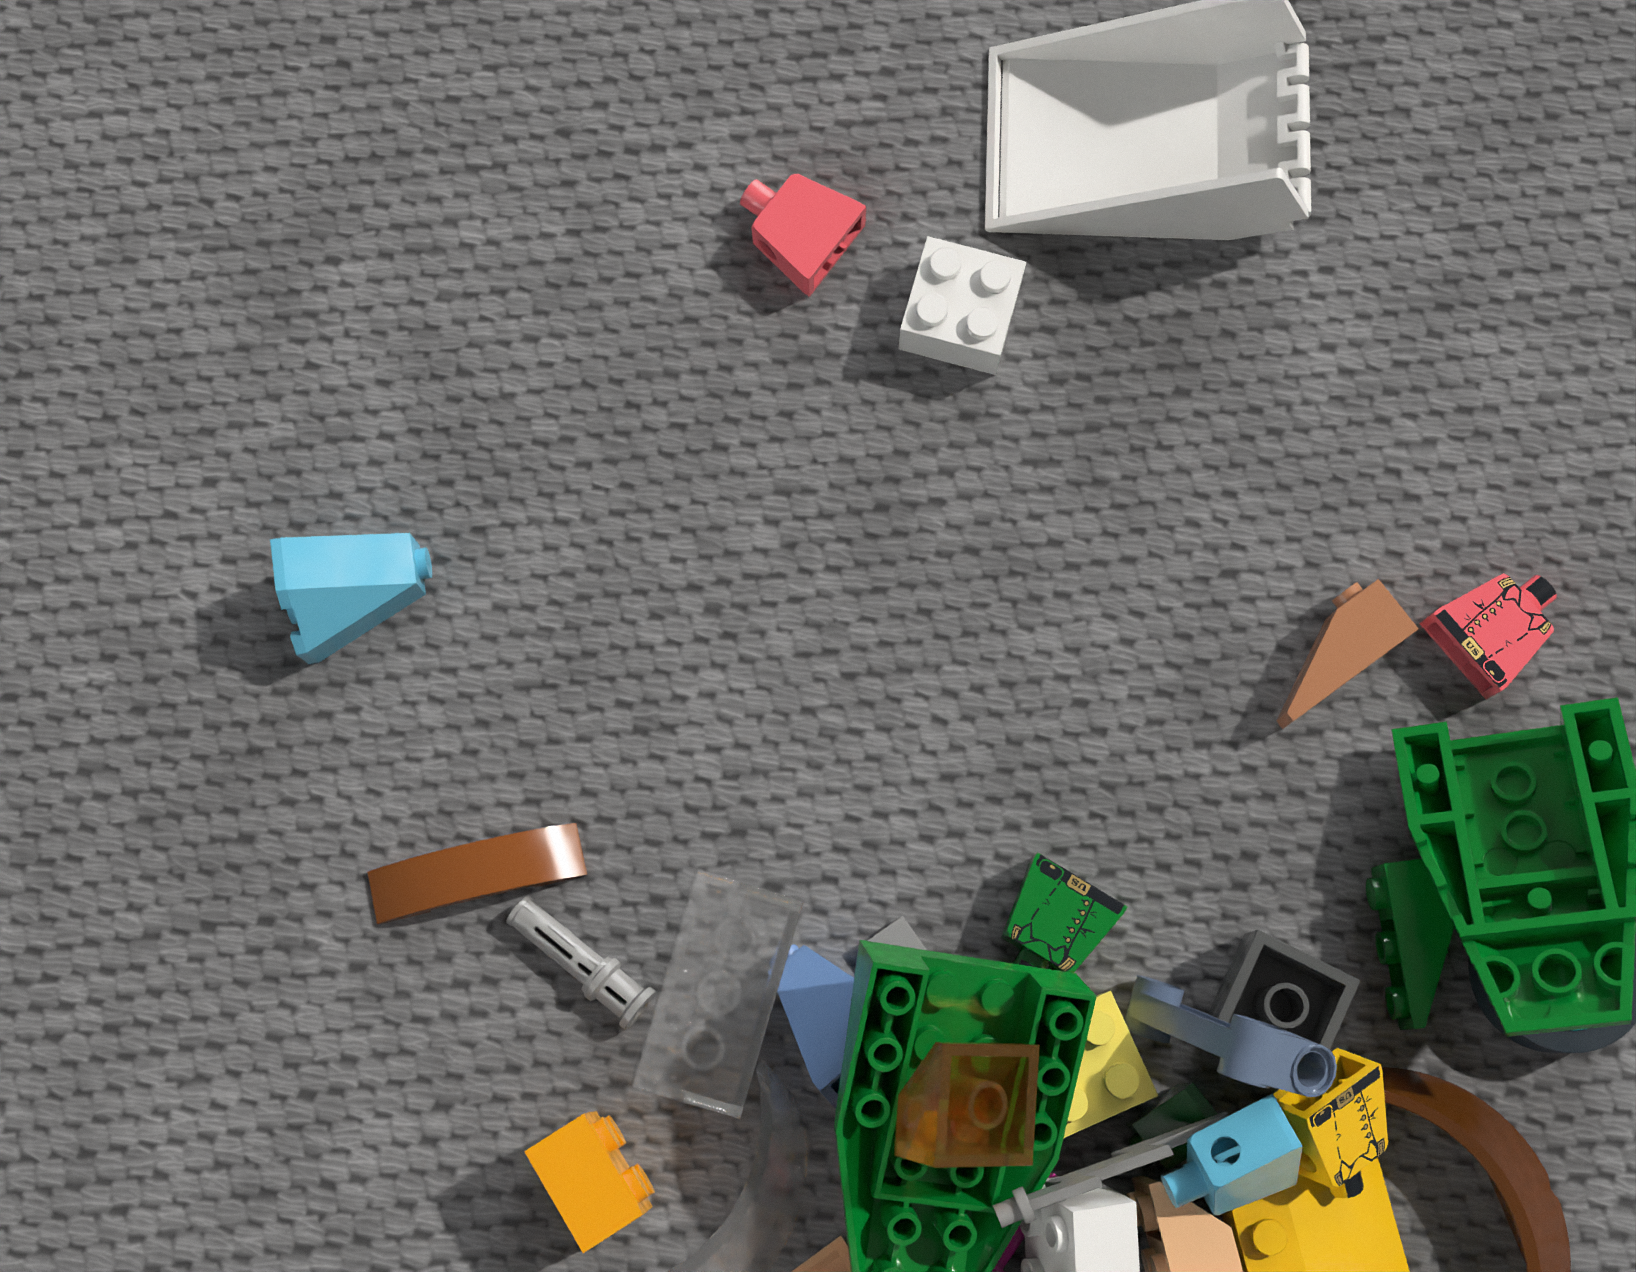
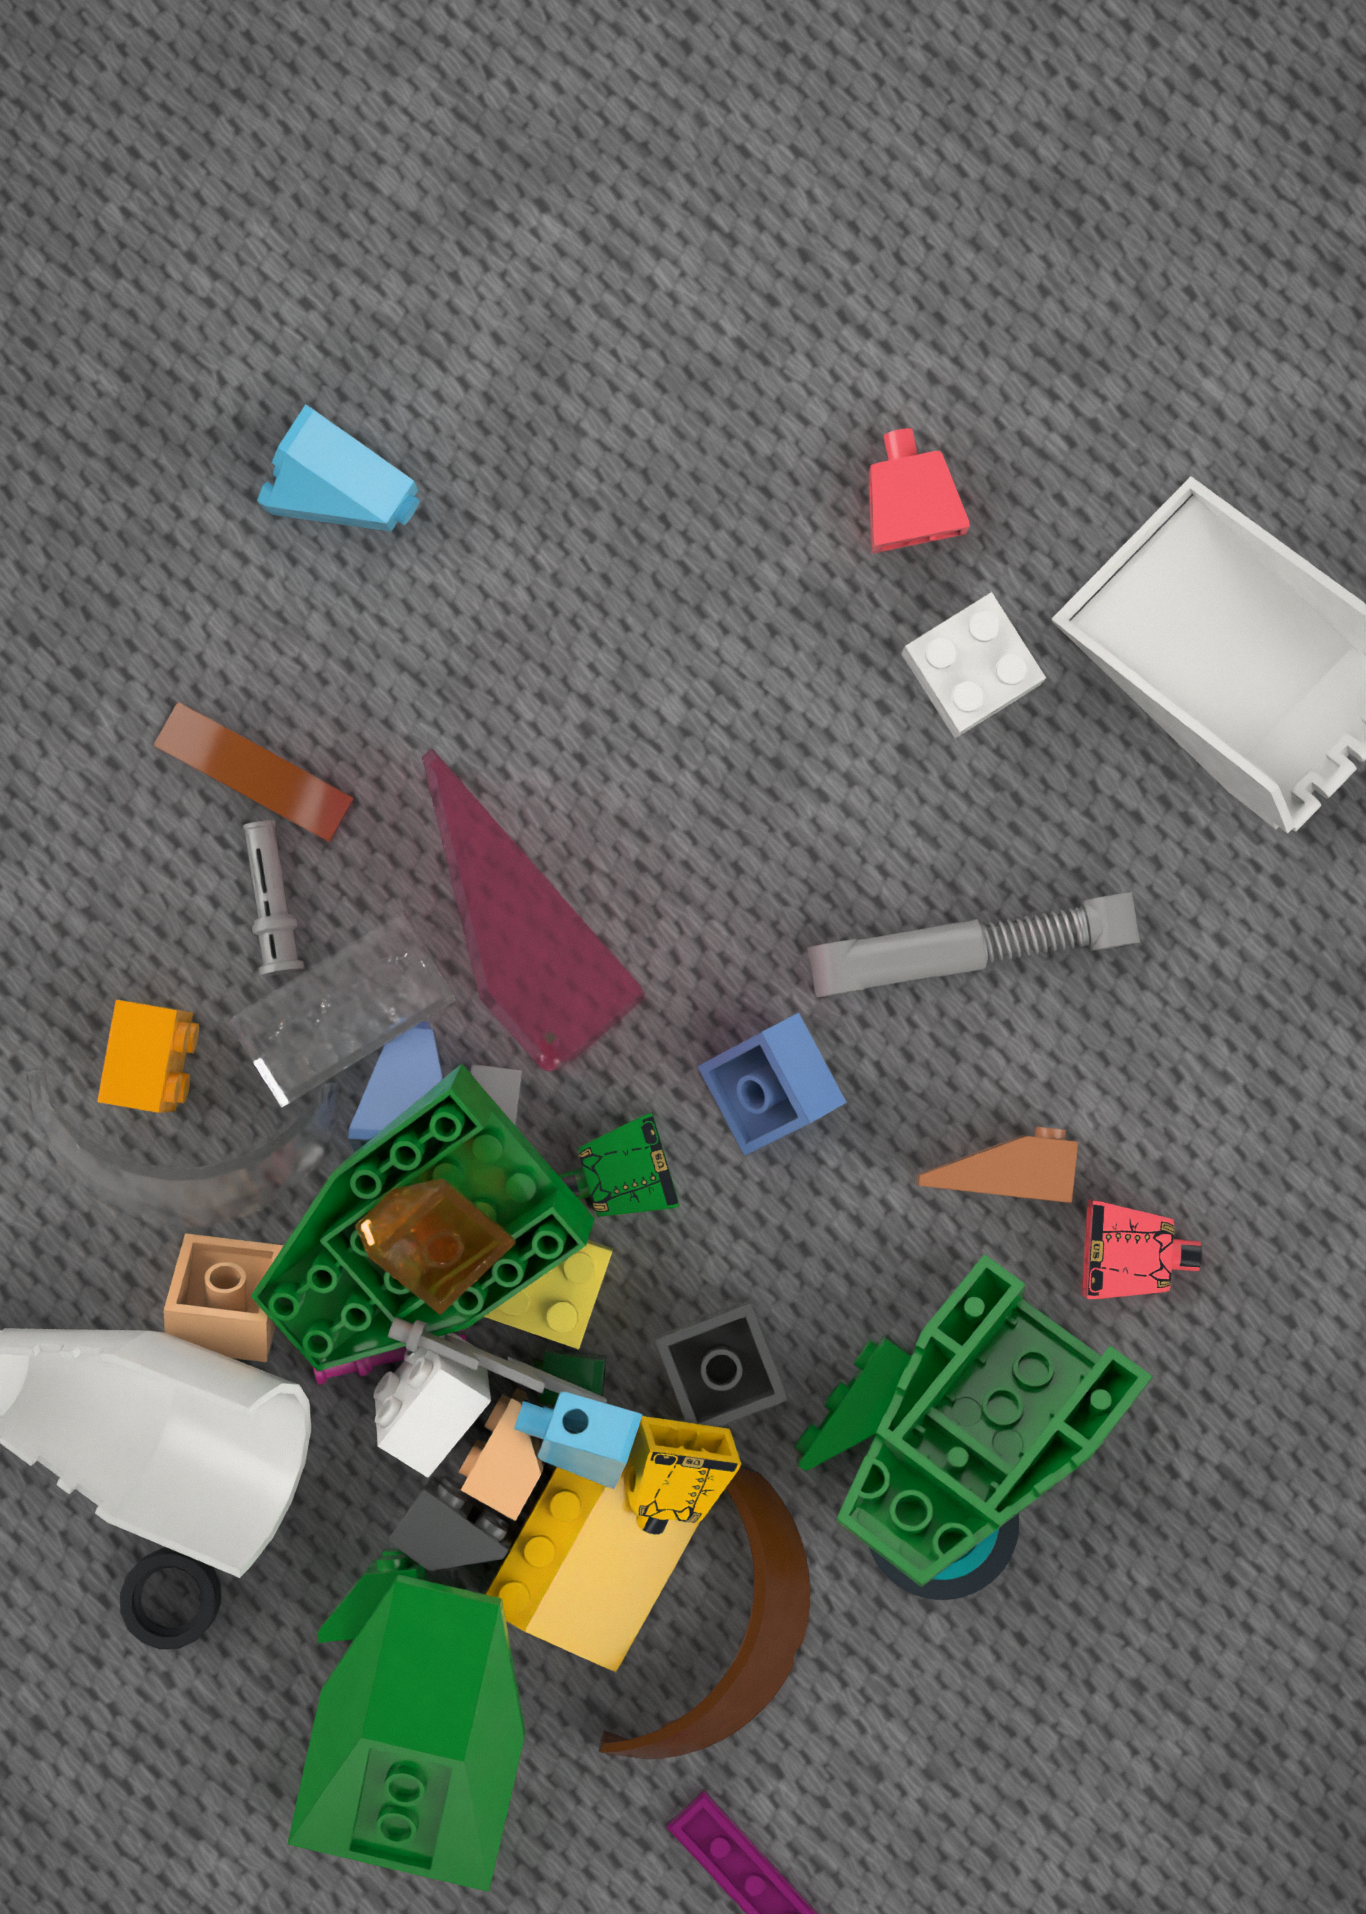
camera: 45 degrees right, 10 degrees up
(833, 796) = (526, 944): none -> clear pink windscreen
(1106, 750) = (772, 1084): none -> medium blue slope
(1152, 513) = (968, 945): none -> light grey piece
(1246, 1047) = (653, 1369): sand blue piece -> none

